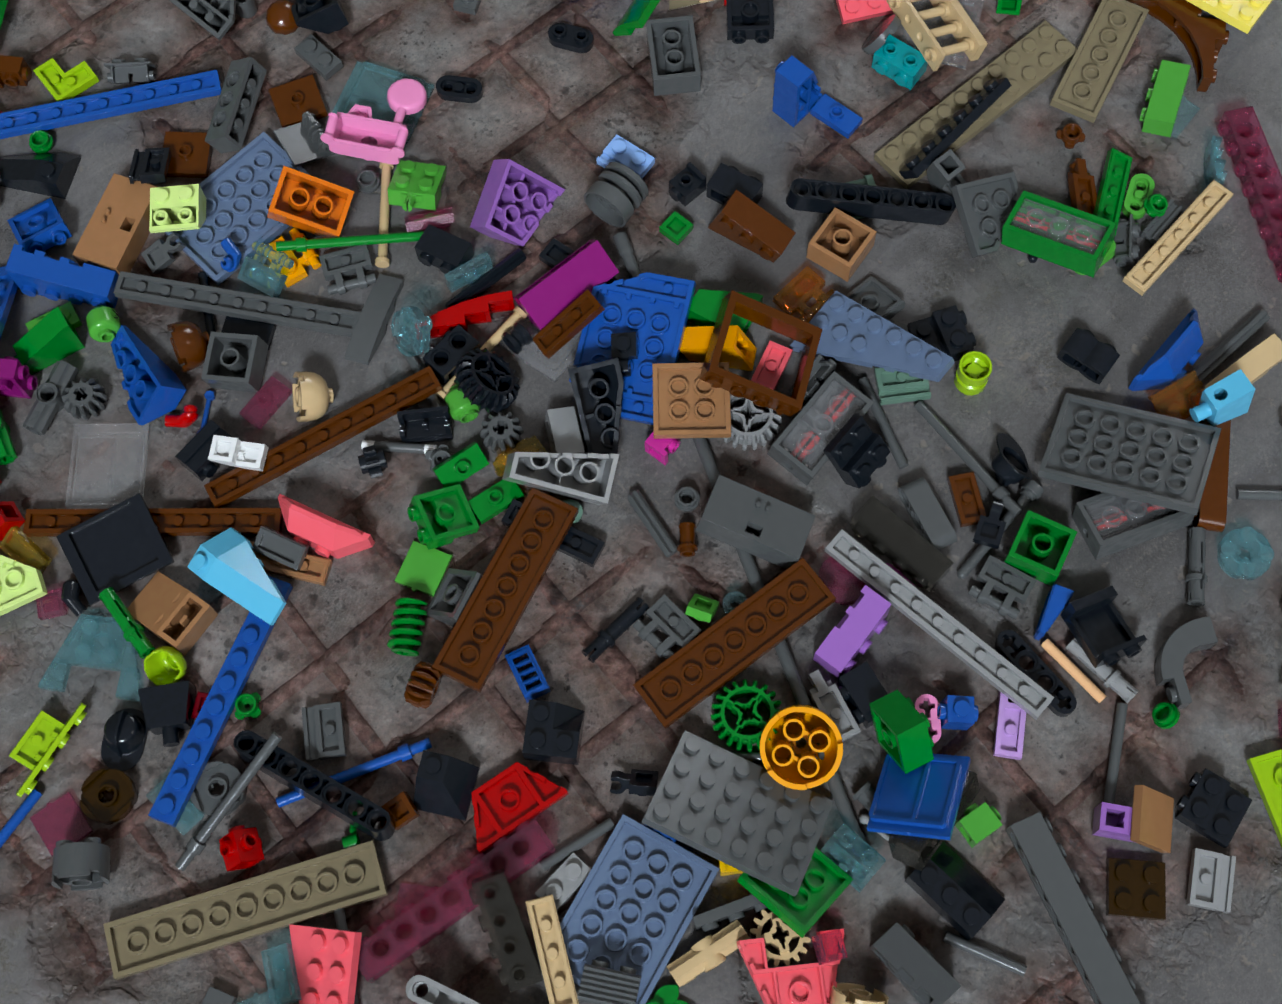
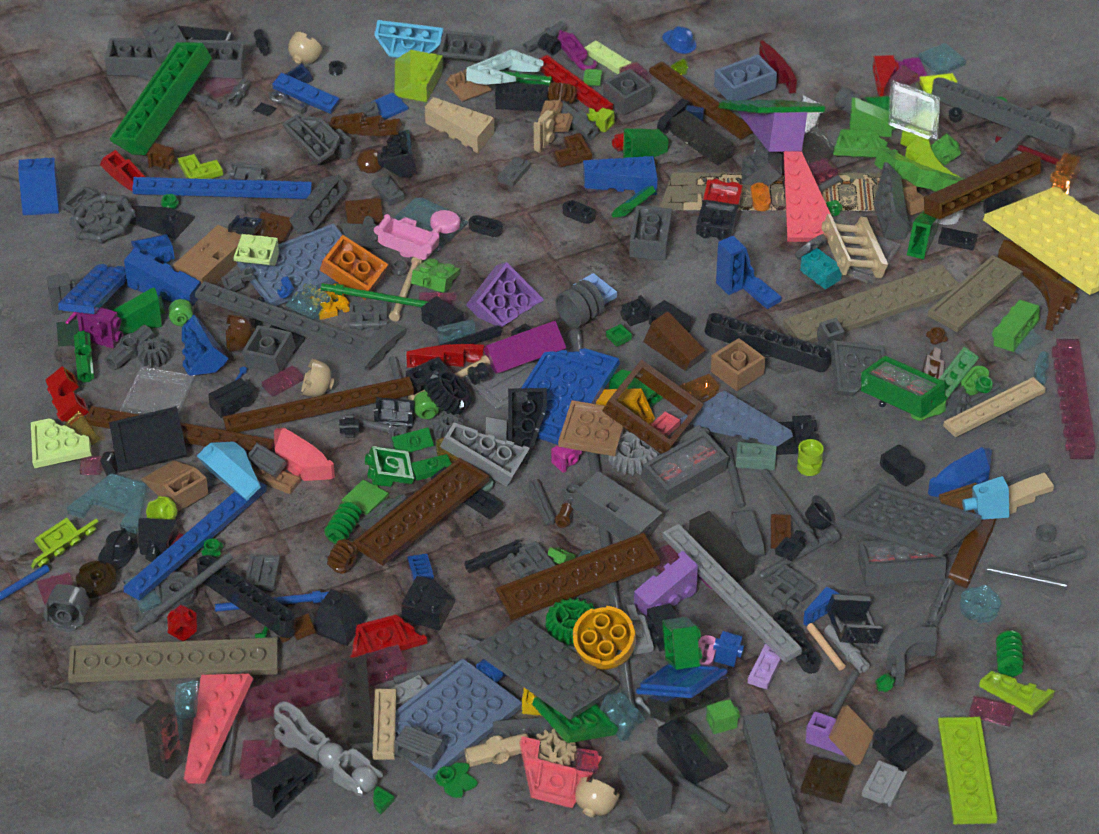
camera: 10 degrees right, 25 degrees down
(132, 631) = (145, 487): green pin -> none
(185, 419) = (220, 379): red arm -> none
(238, 453) = (253, 400): white slope -> none
(413, 341) = (403, 352): clear light blue plate -> none
(568, 324) = (518, 370): reddish brown plate -> none
(625, 348) = (555, 391): black plate -> none
(857, 452) = (706, 484): black plate -> none
(955, 128) = (852, 306): black plate -> none
(1040, 547) = (824, 564): green brick -> none

